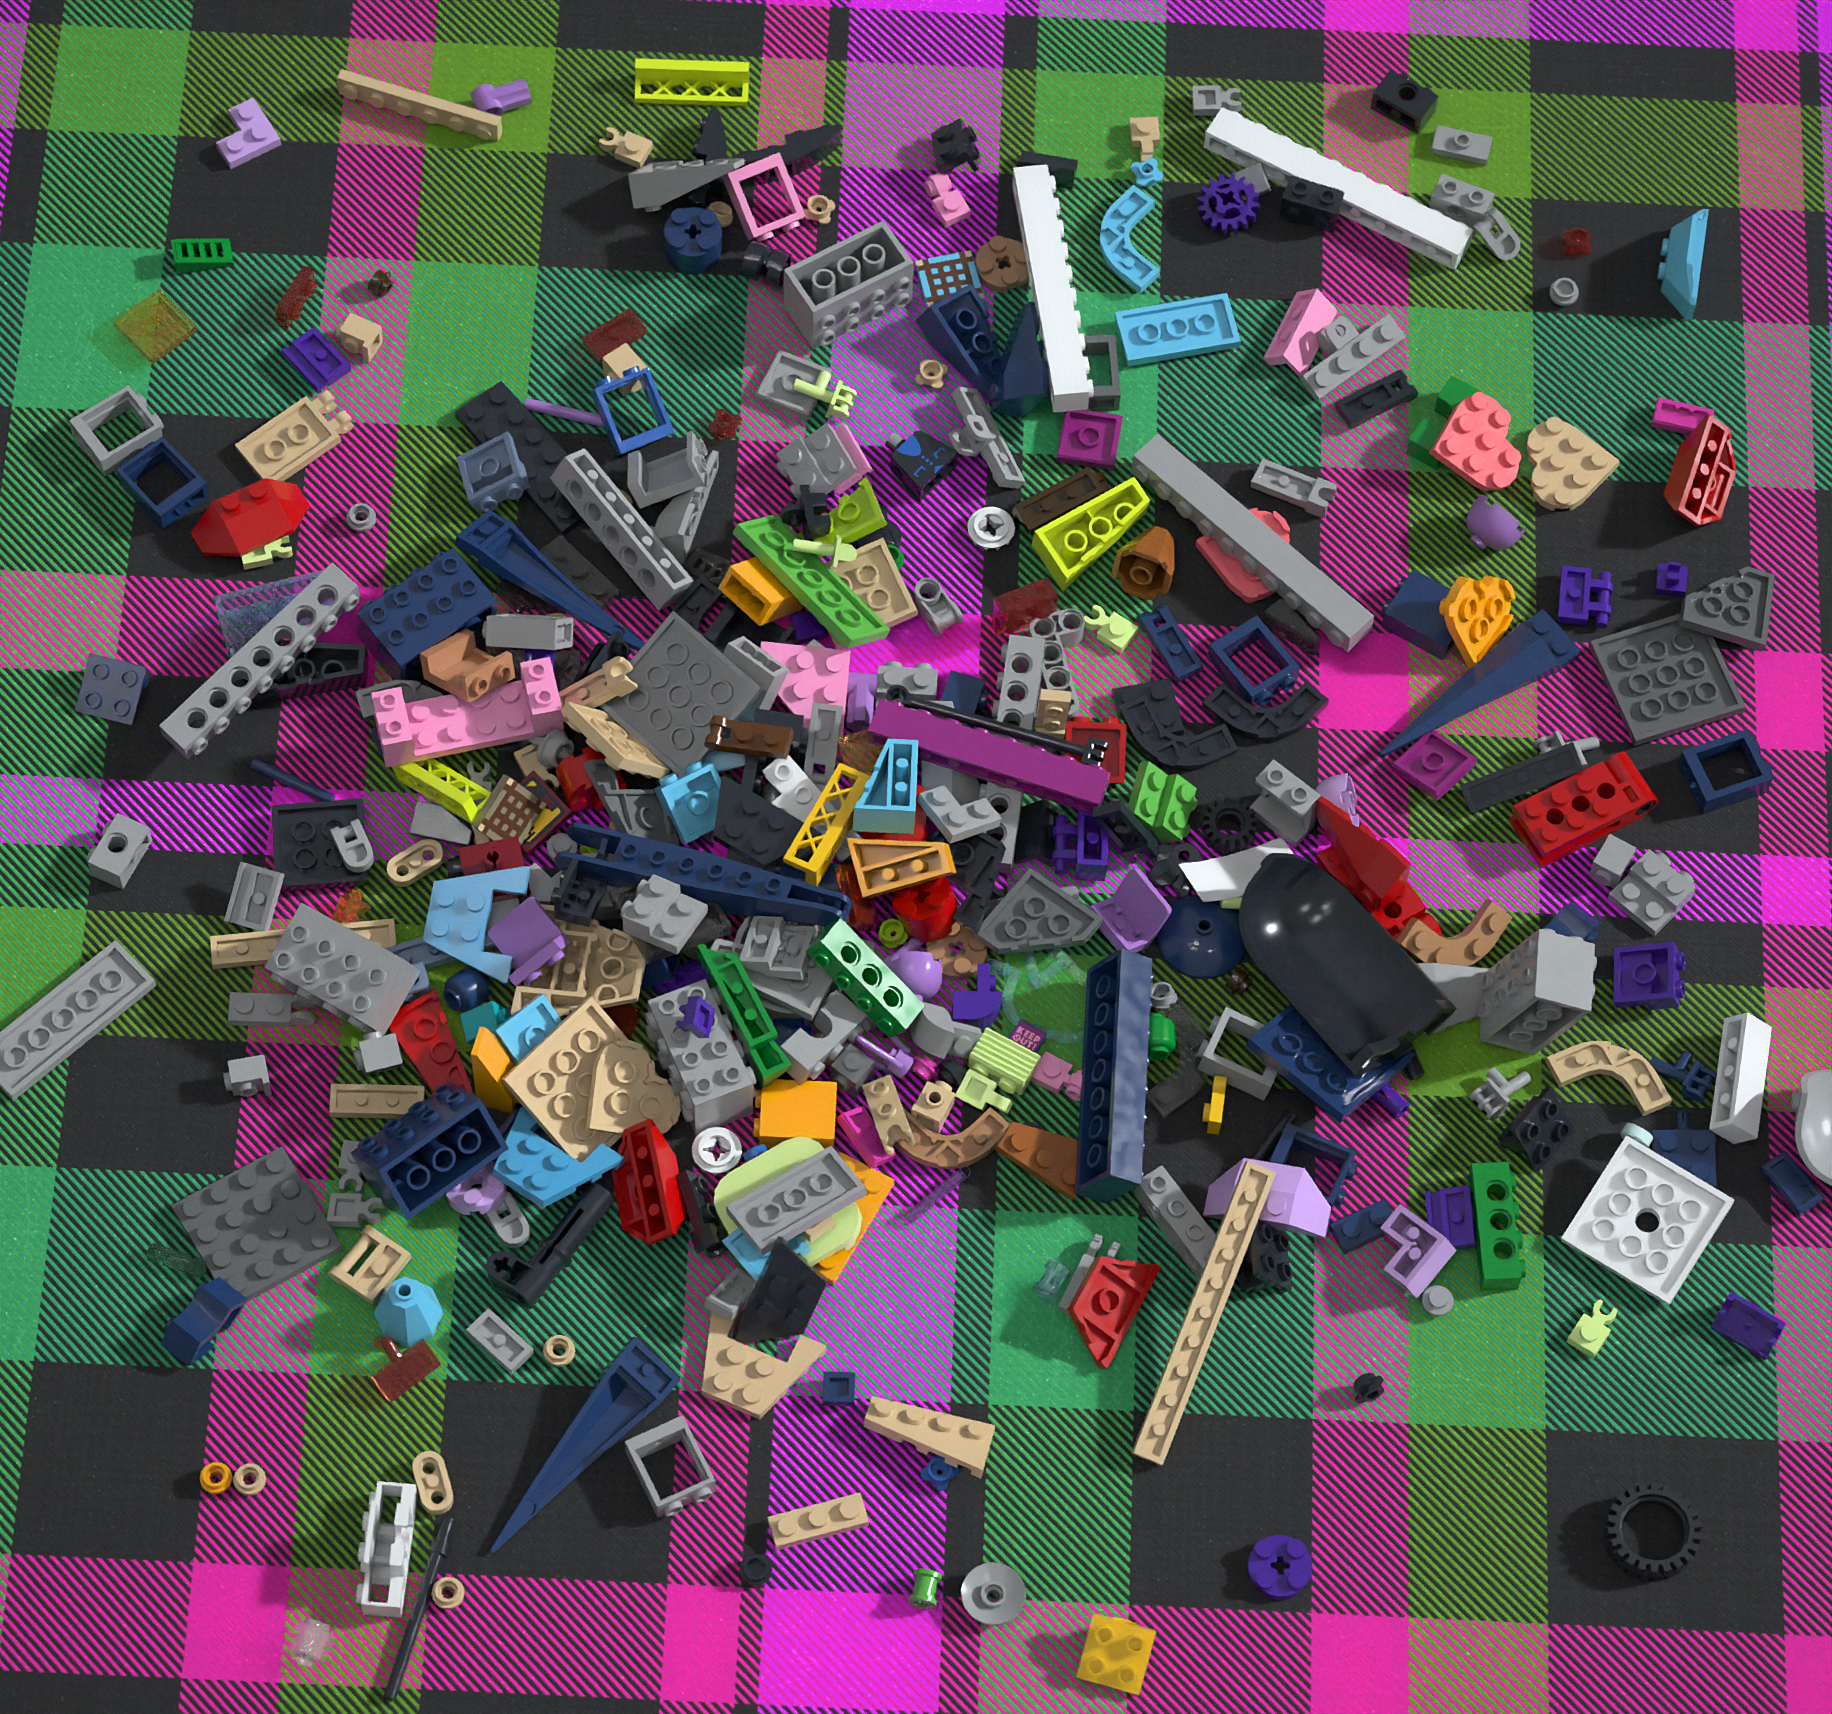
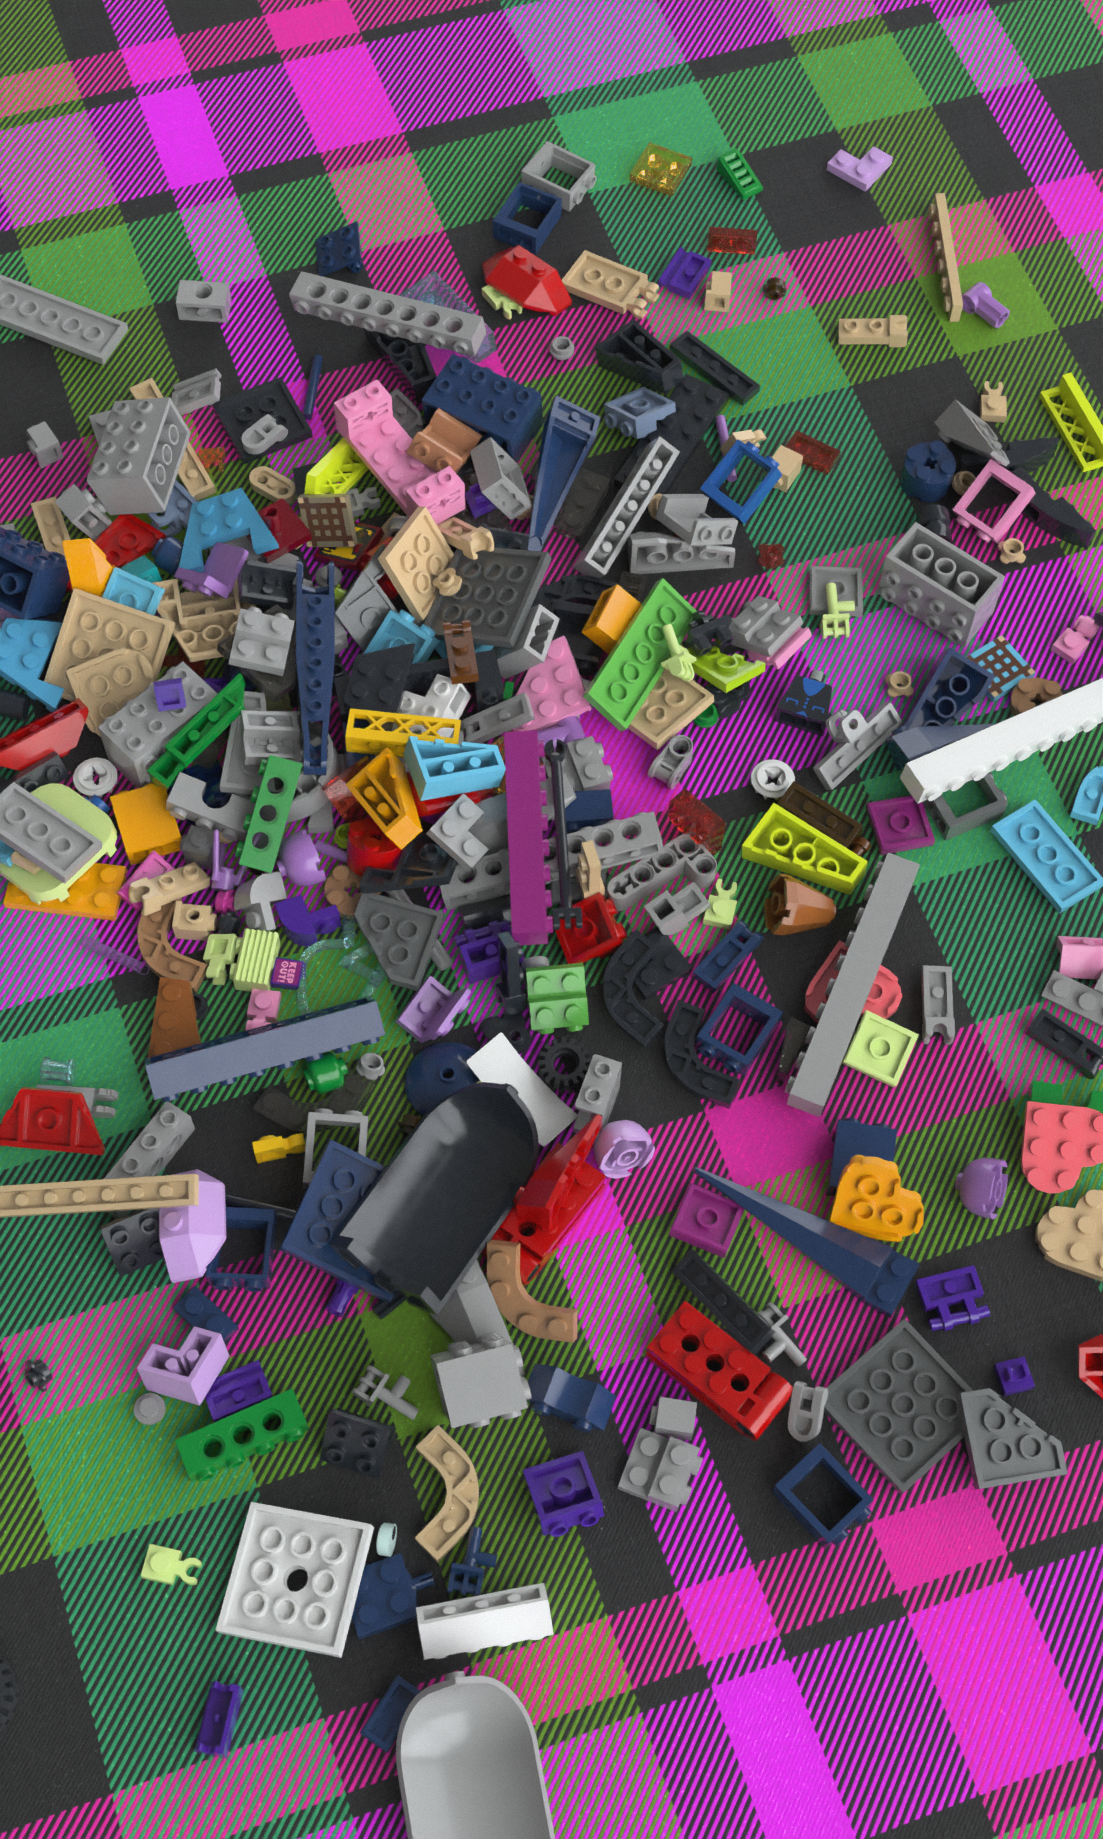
camera: 70 degrees right, 0 degrees up
(423, 442) = (640, 357): none -> black wedge
(460, 381) = (714, 367): none -> black plate
(482, 216) = (874, 331): none -> tan plate
(578, 394) = (744, 436): none -> tan plate
(652, 729) = (448, 582): none -> tan plate
(1107, 665) = (674, 912): none -> light grey brick
(1325, 548) = (880, 1048): none -> yellowish green tile
(1654, 759) = (805, 1422): none -> light grey plate

